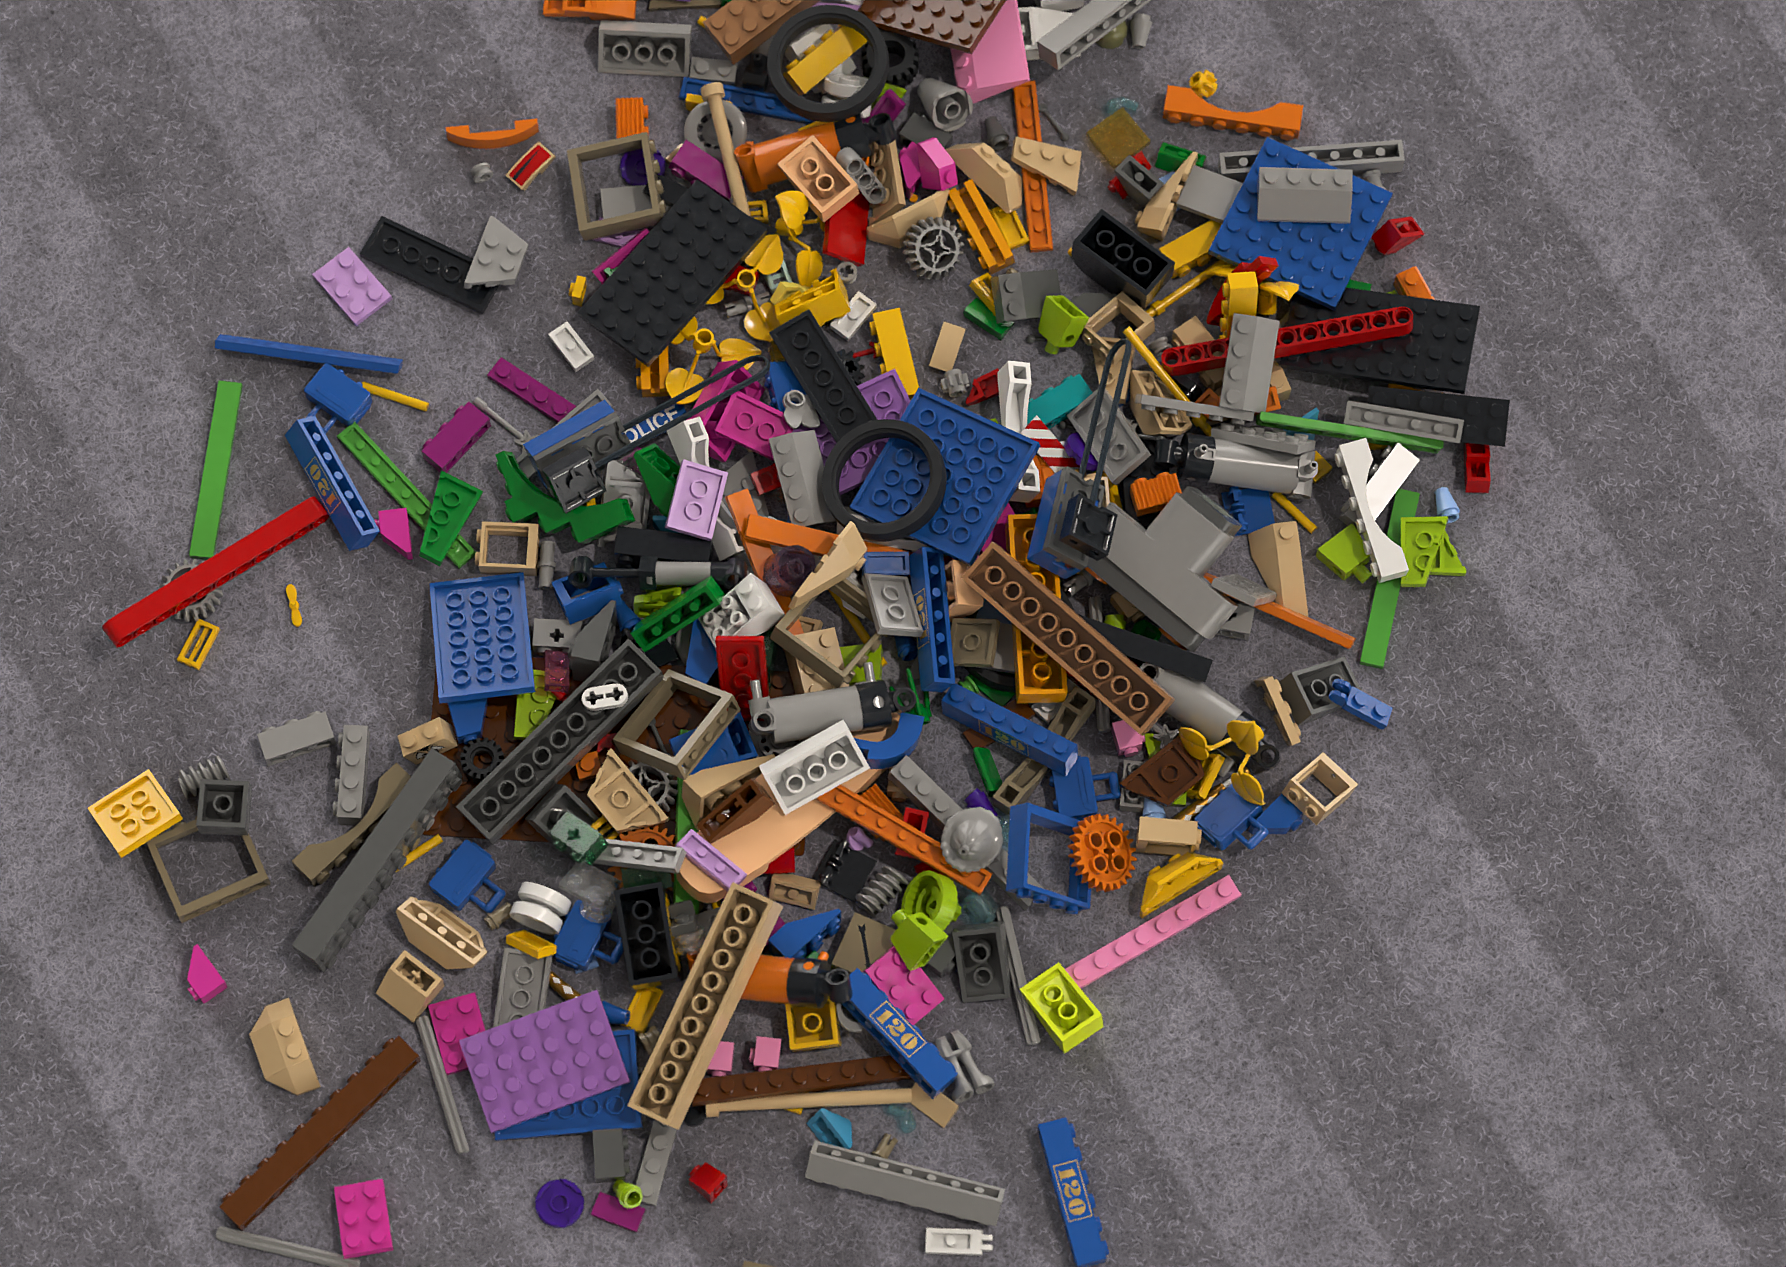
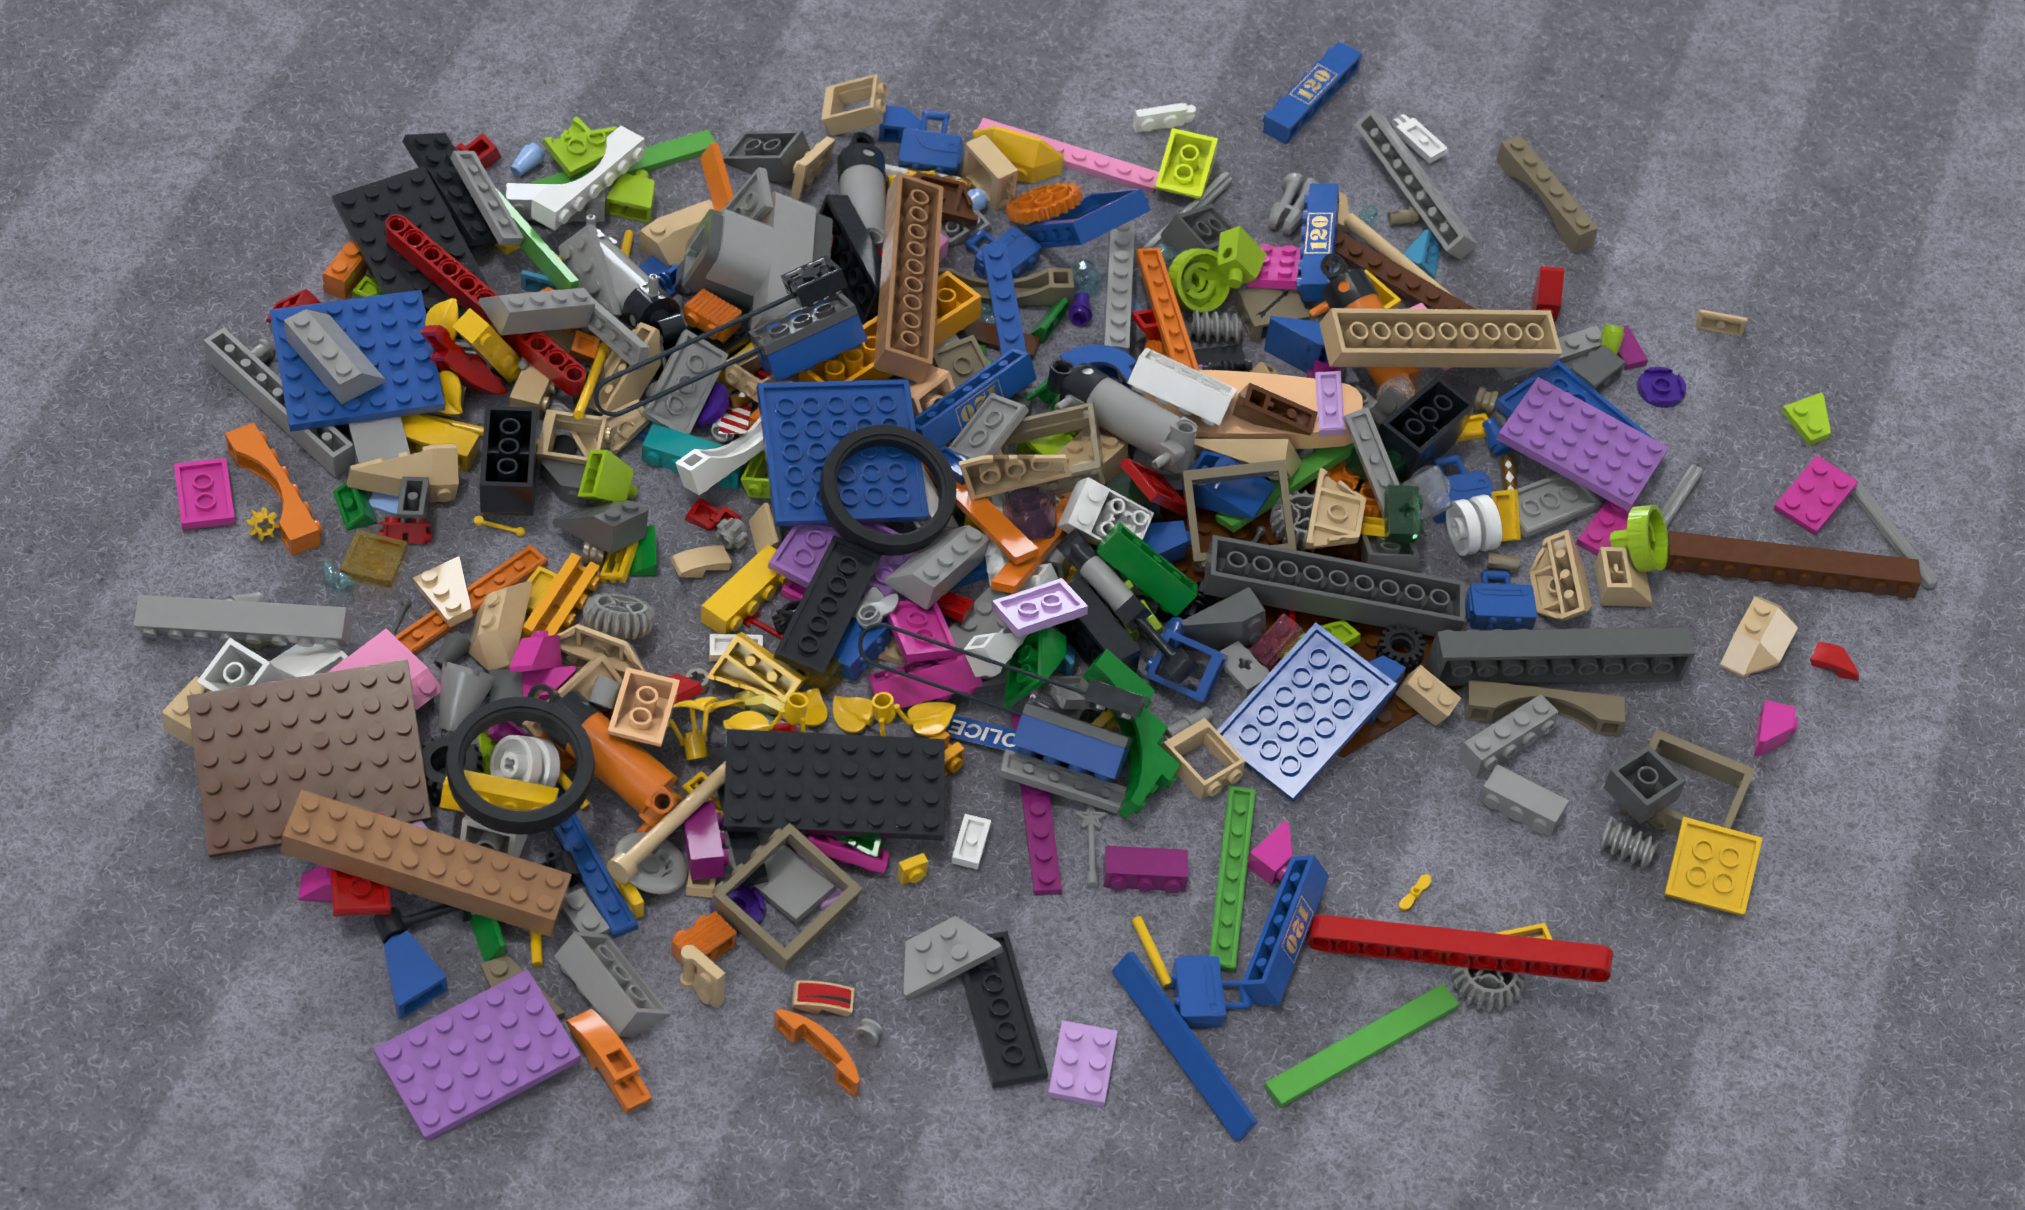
camera: 135 degrees left, 20 degrees down
(220, 1084) = (1834, 658): none -> red slope
(418, 1014) = (1644, 538): none -> lime piece
(449, 513) = (1221, 820): green wing -> none
(591, 94) = (708, 982): none -> tan plate
(604, 691) = (1275, 558): white beam -> none
(971, 839) = (1130, 258): light grey piece -> none
(1131, 1043) = (1163, 117): none -> white hinge
(1246, 736) = (872, 138): yellow plant -> none
(1263, 68) = (204, 493): none -> dark pink plate
(1360, 704) = (755, 119): blue hinge -> none

